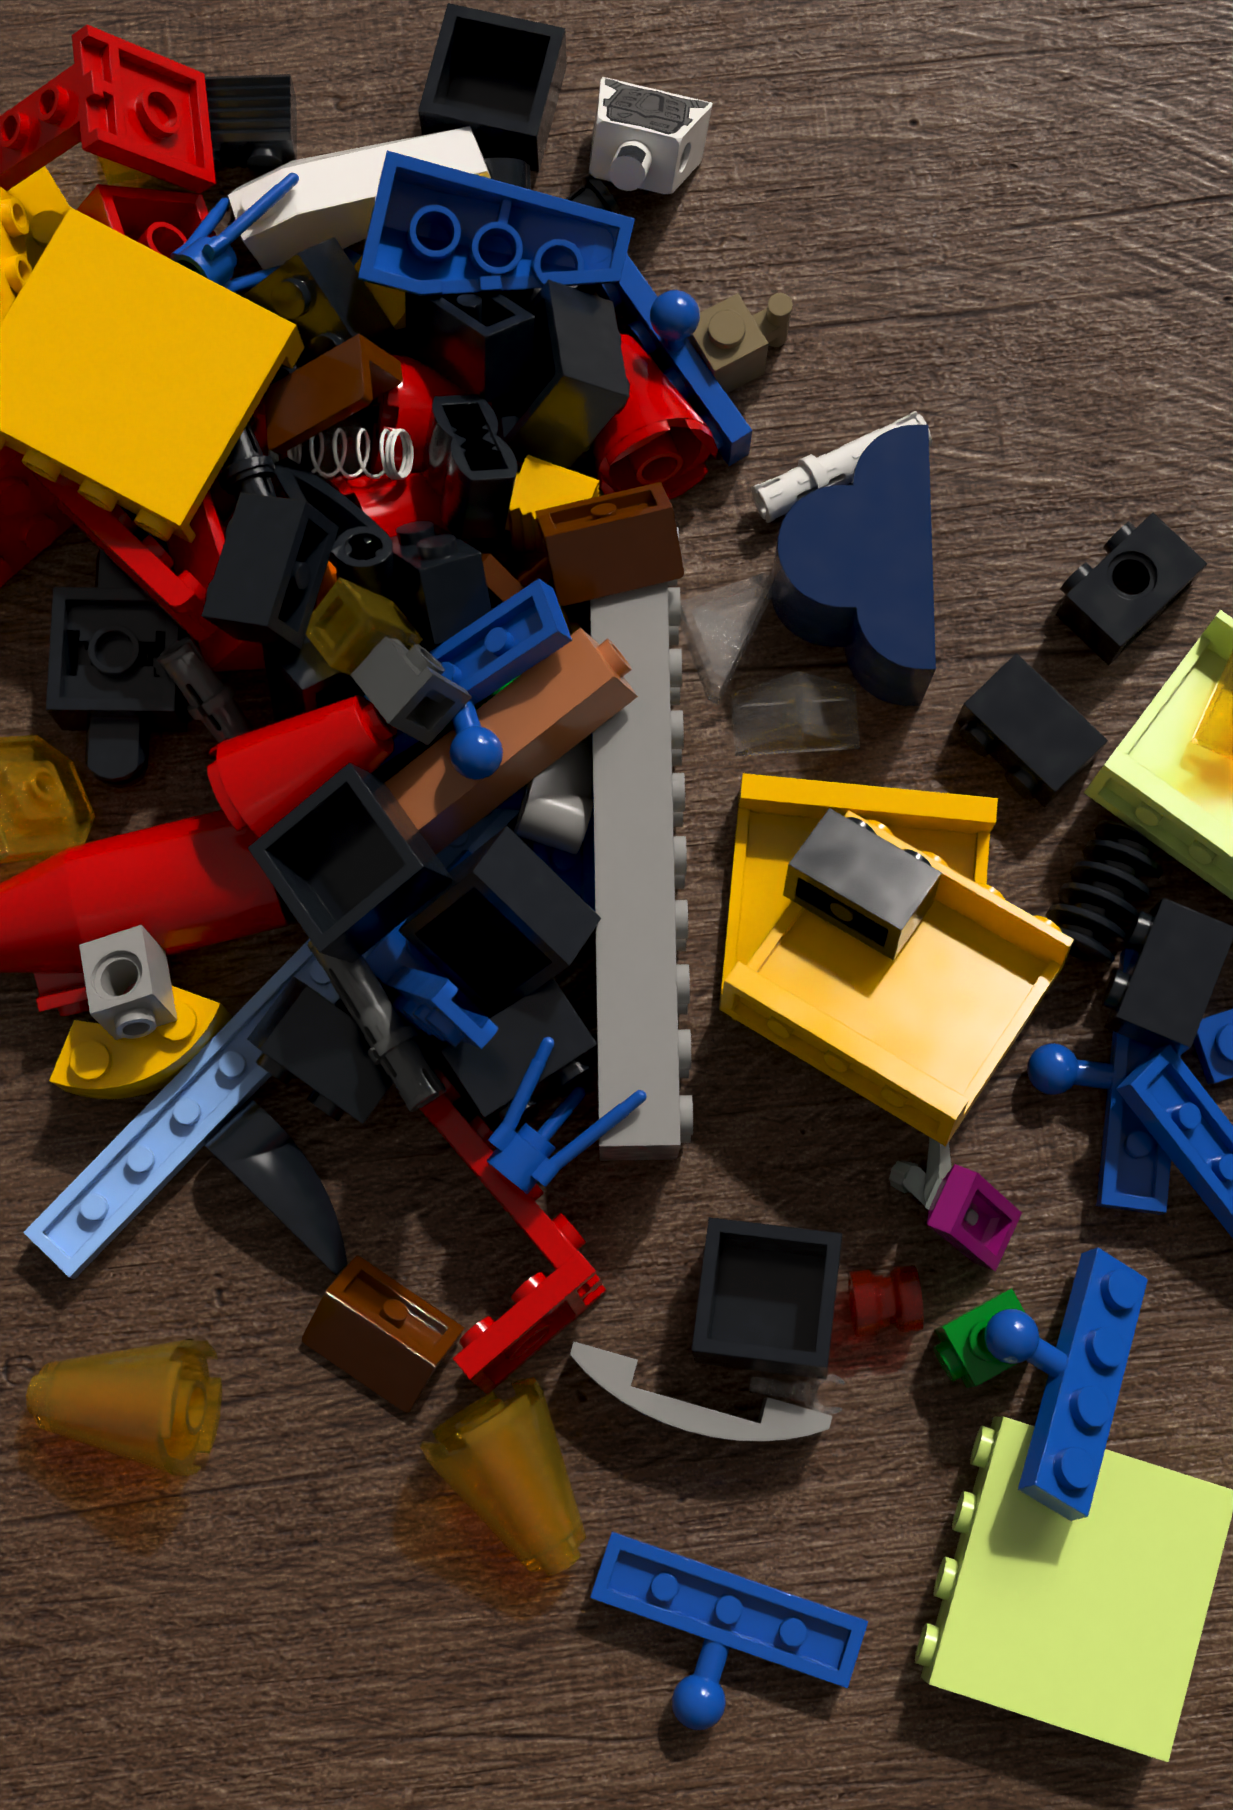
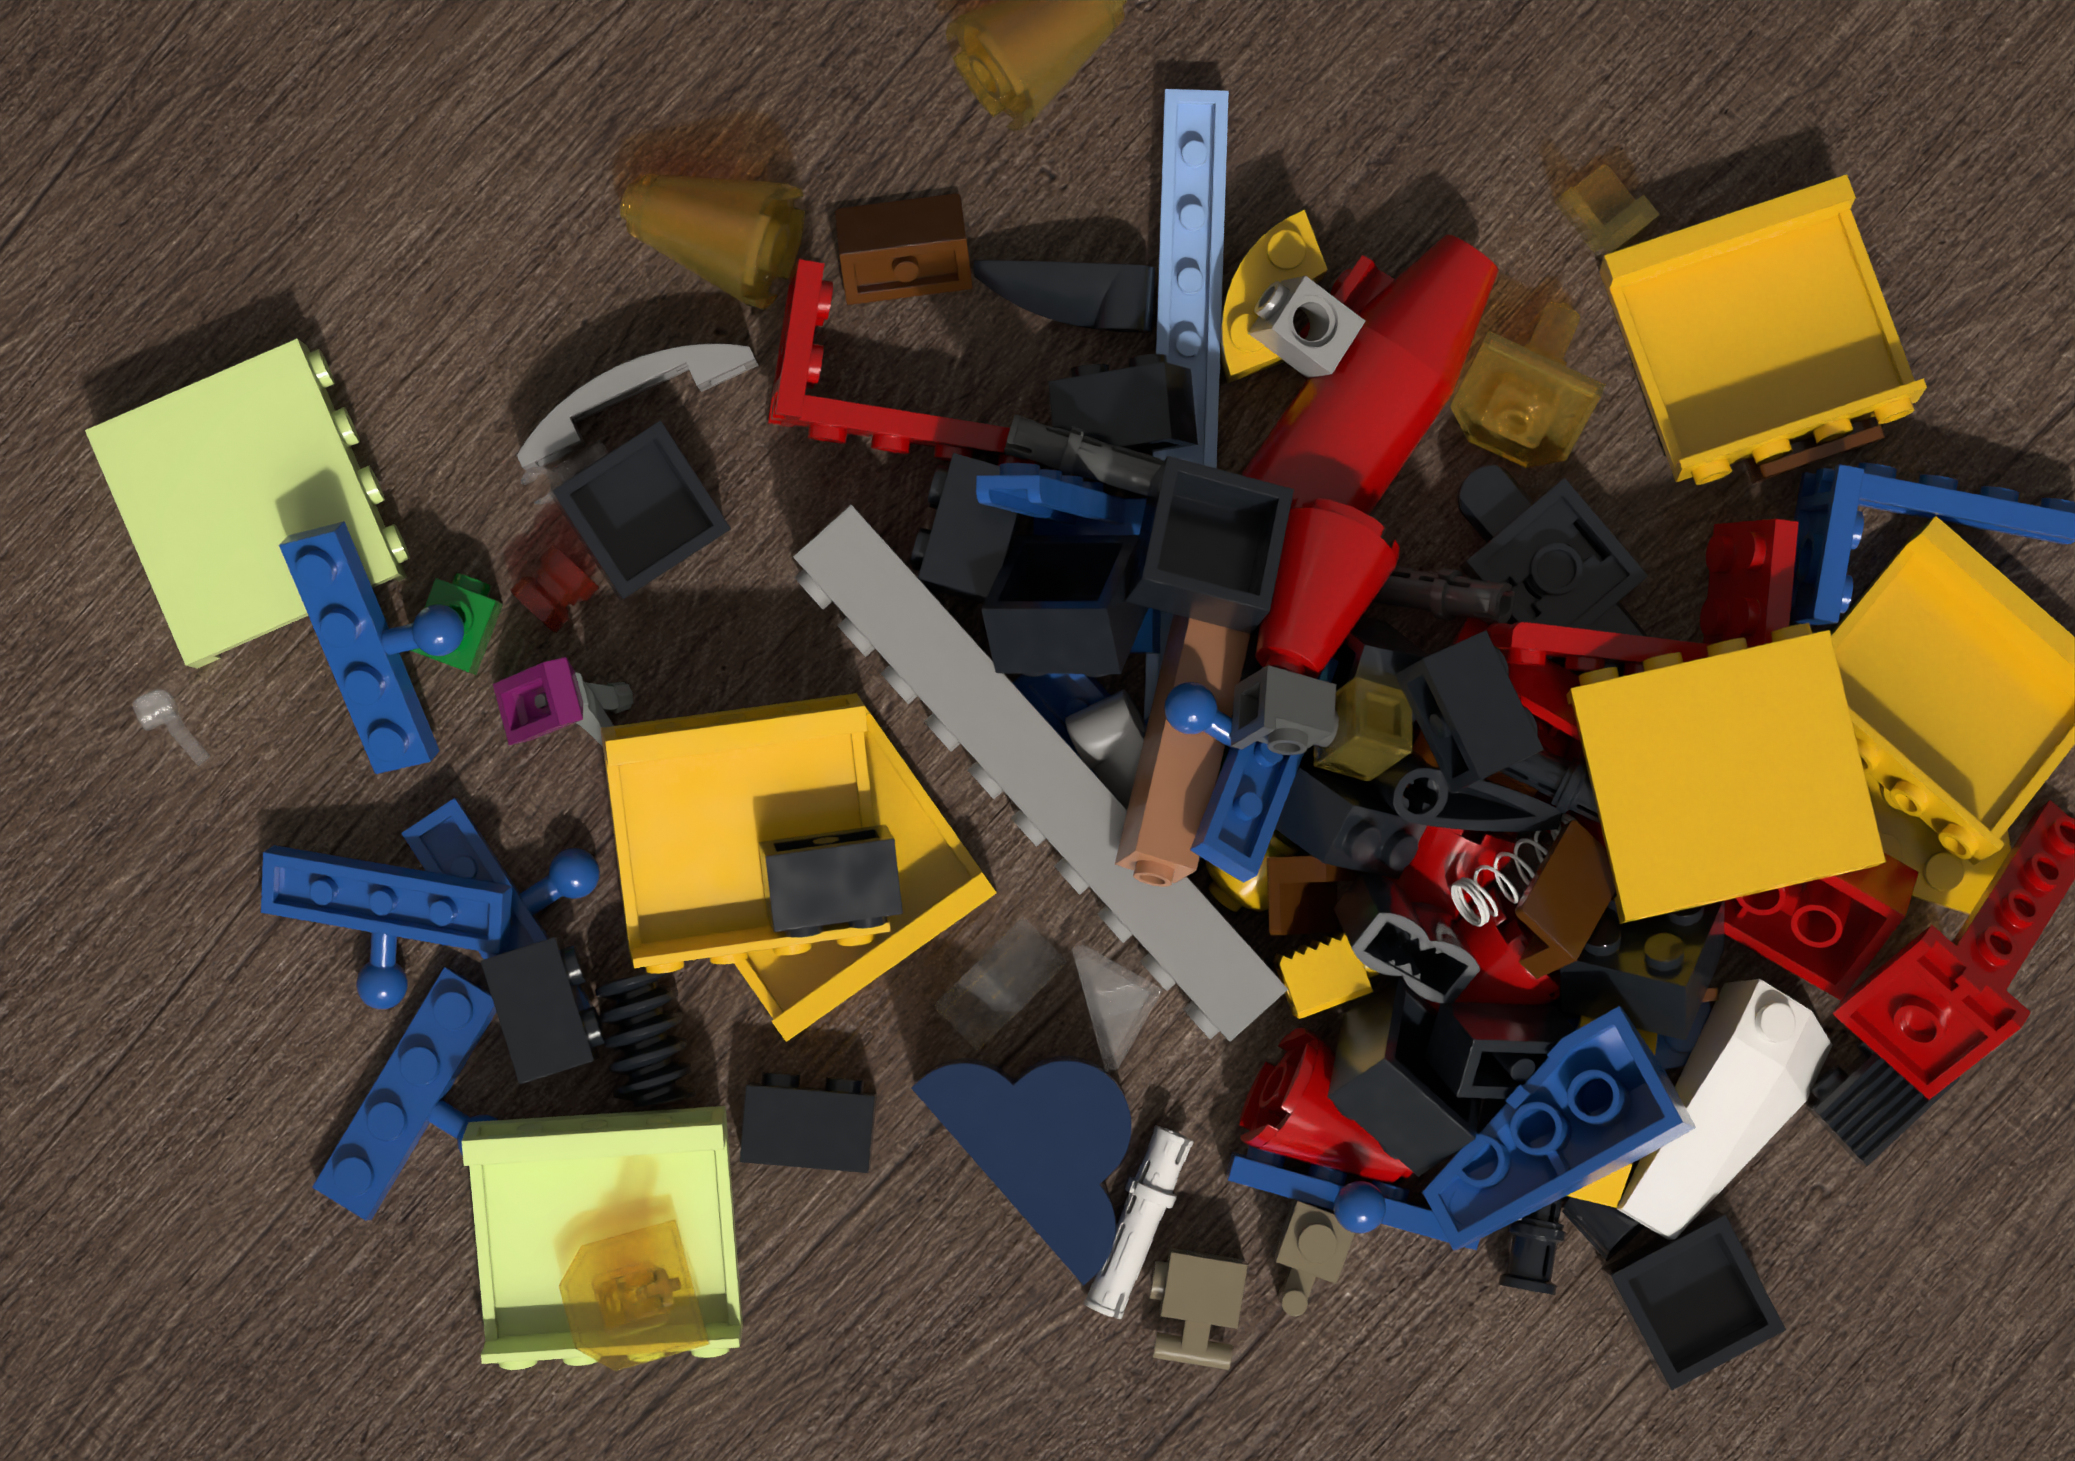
camera: 140 degrees right, 10 degrees up
(214, 255) = (1766, 930): blue plant -> none
(525, 1154) = (901, 453): blue plant -> none
(611, 543) = (1242, 968): reddish brown panel -> none
(646, 136) = (1532, 1361): white torso -> none
(727, 1614) = (482, 267): blue plate -> none
(842, 380) = (1203, 1293): none -> dark tan brick
(1150, 557) = (809, 1348): black brick -> none

